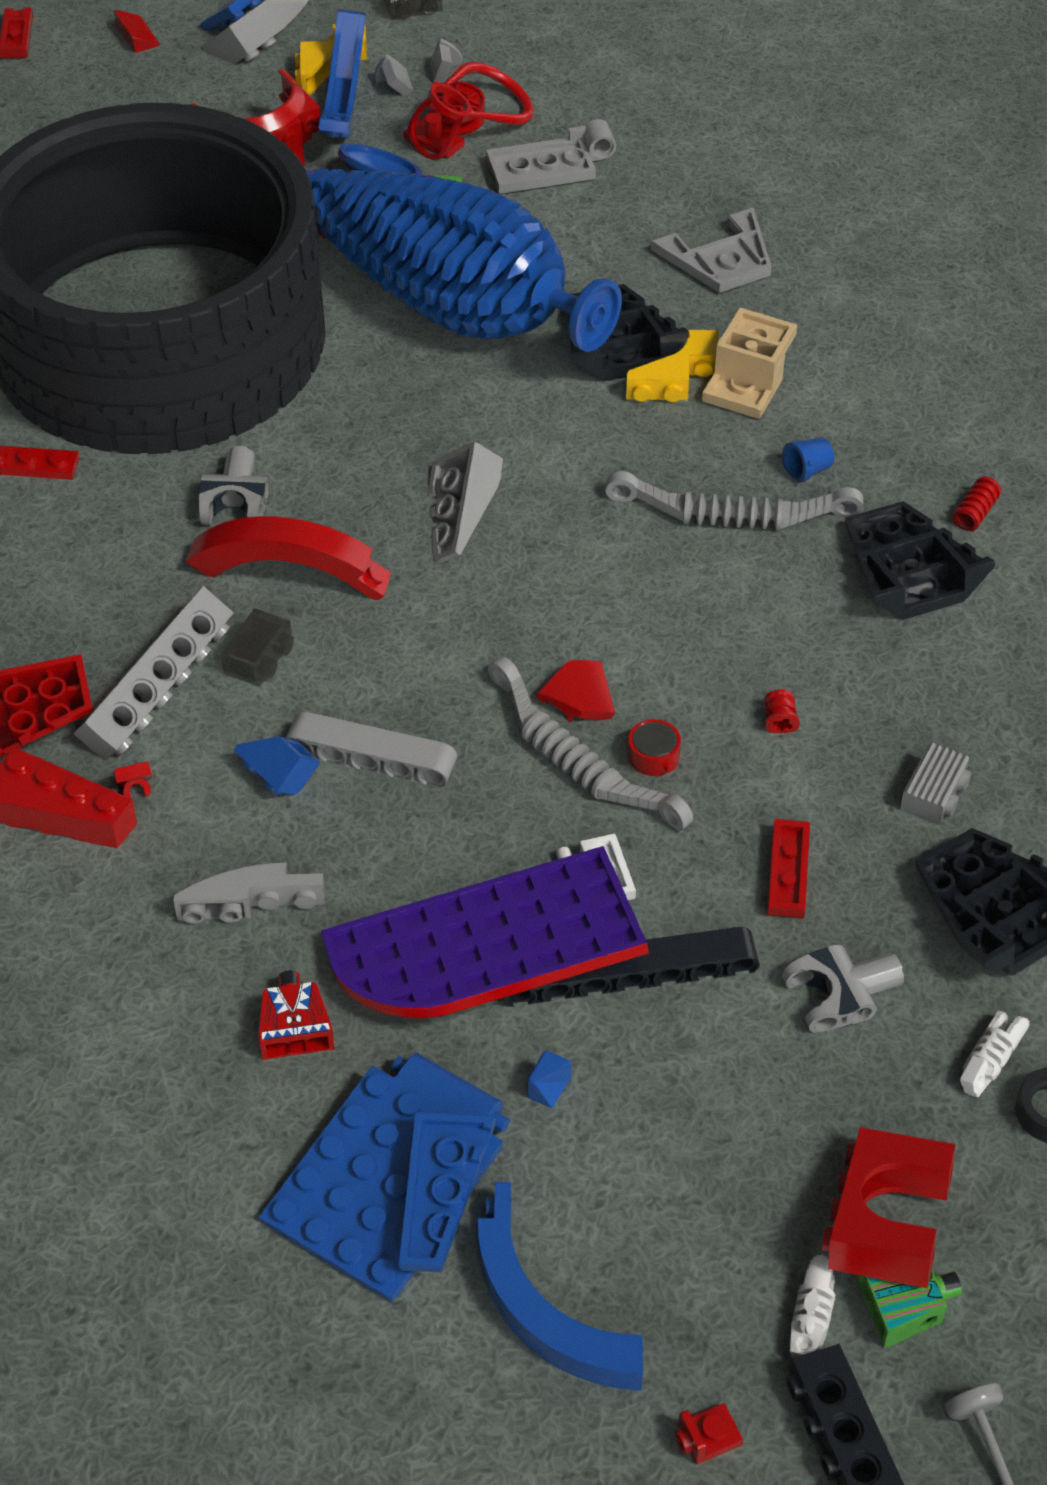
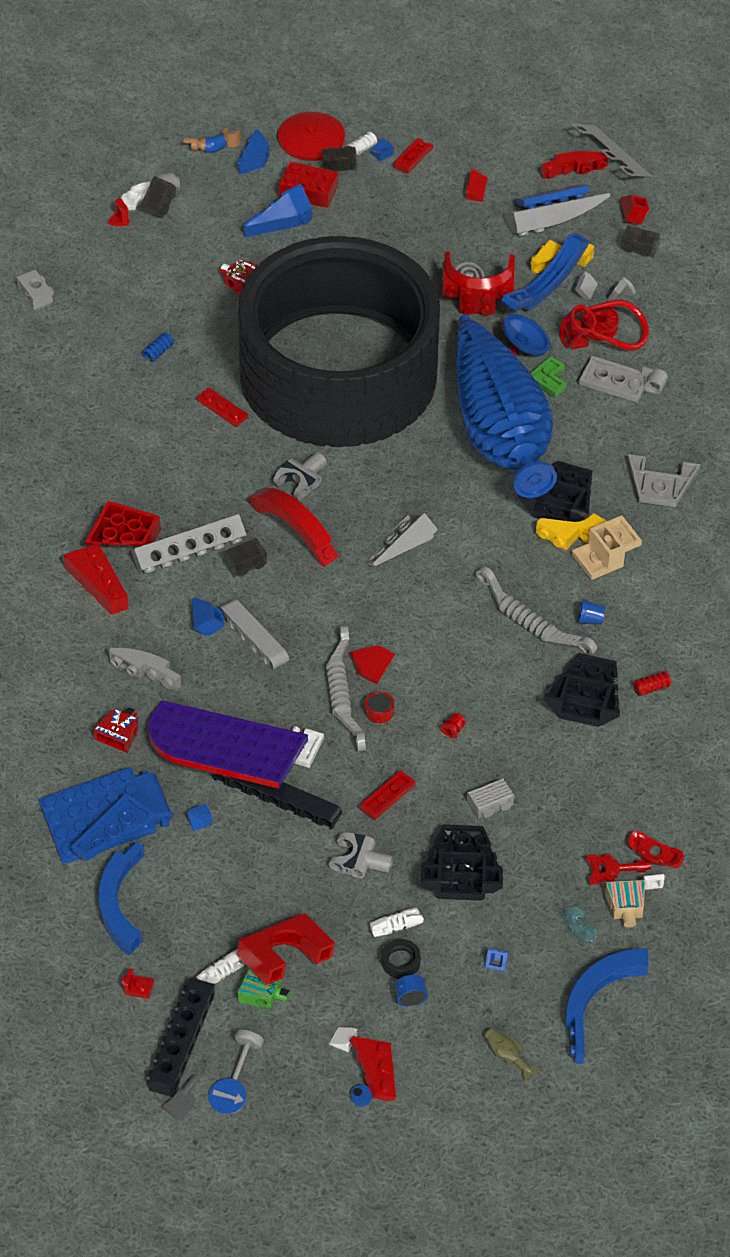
camera: 35 degrees right, 0 degrees up
(133, 776) = (140, 585): red tile -> none

